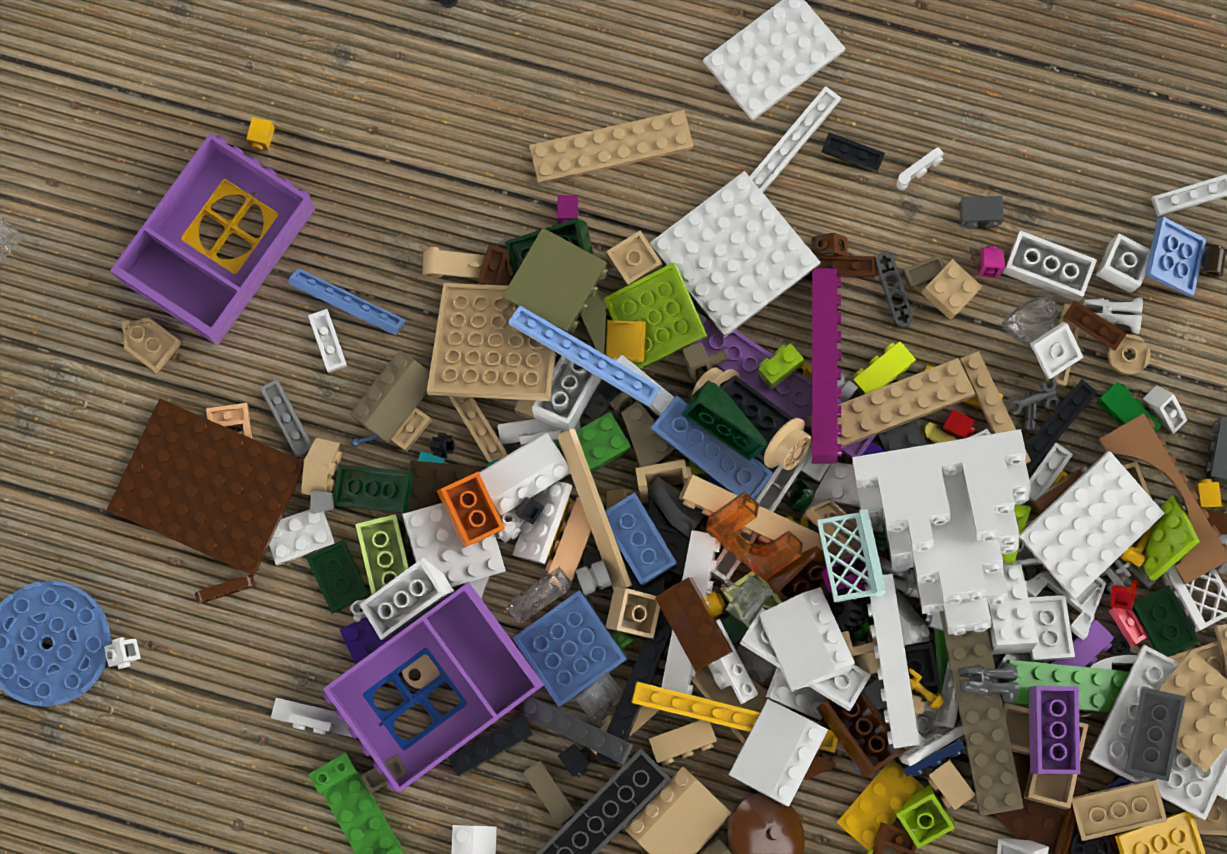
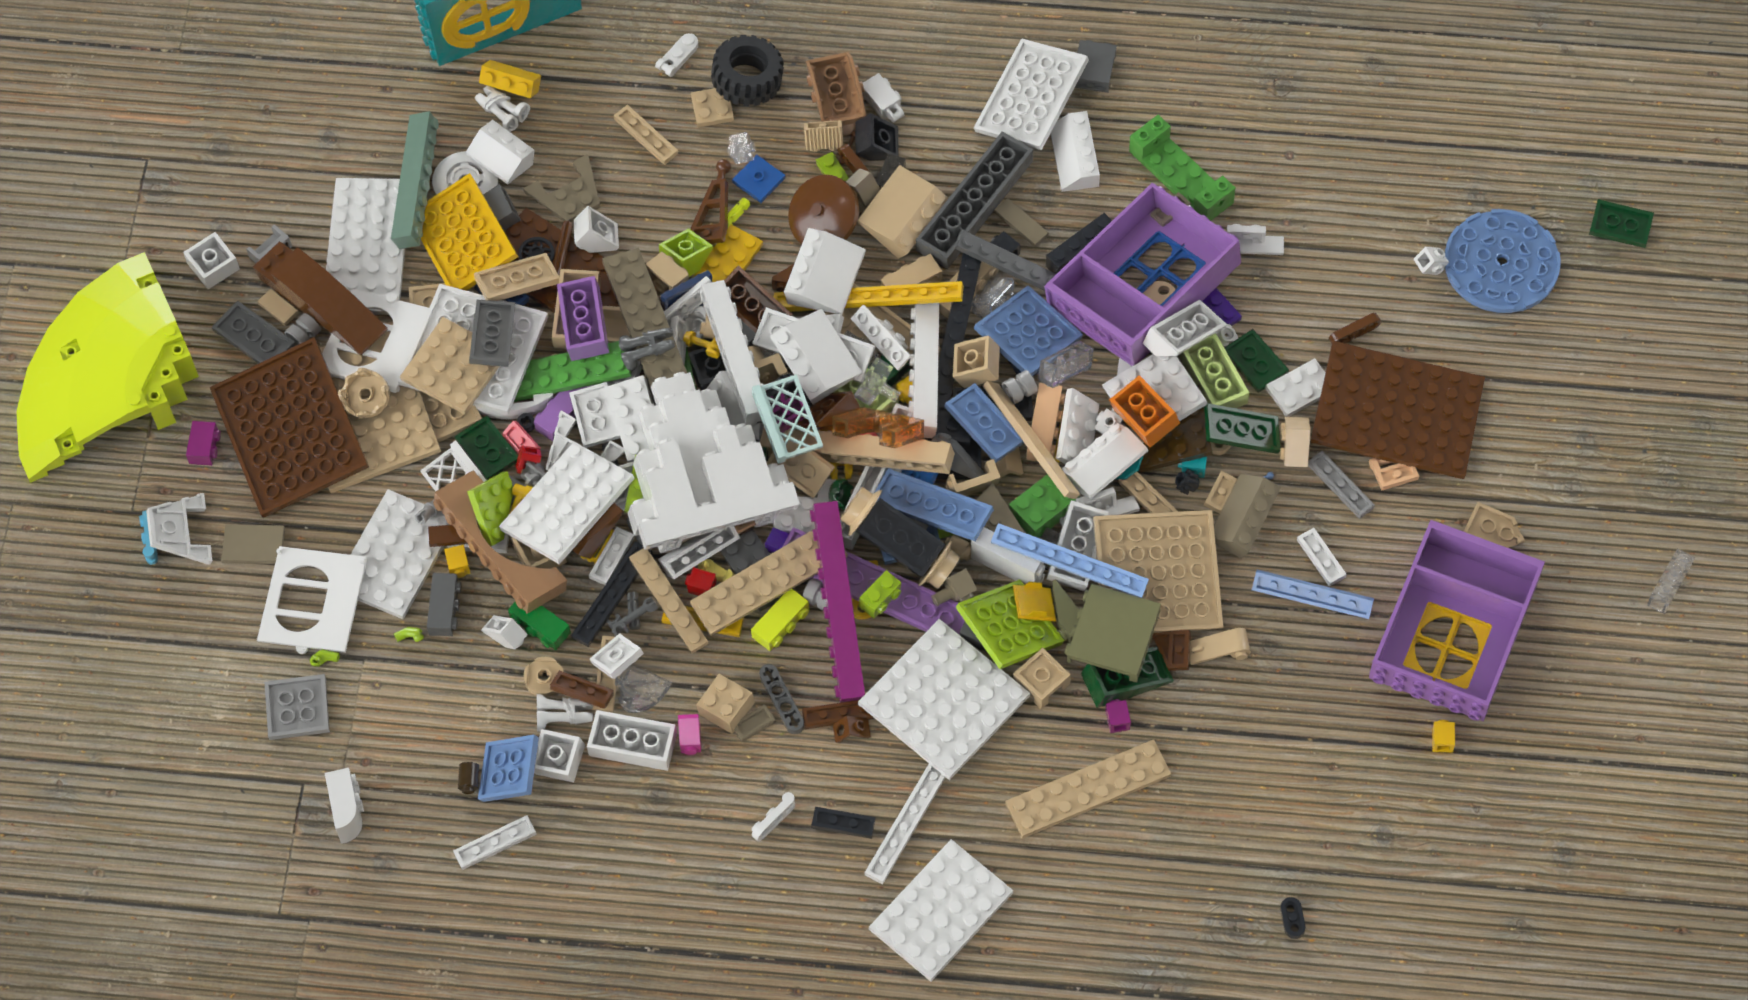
camera: 170 degrees right, 15 degrees down
(321, 501) = (1288, 411): light grey slope -> none
(529, 510) = (1091, 431): black plate -> none
(693, 624) = (917, 353): reddish brown slope -> none
(722, 418) = (943, 524): dark green slope -> none
(981, 211) = (706, 785): dark grey brick -> none

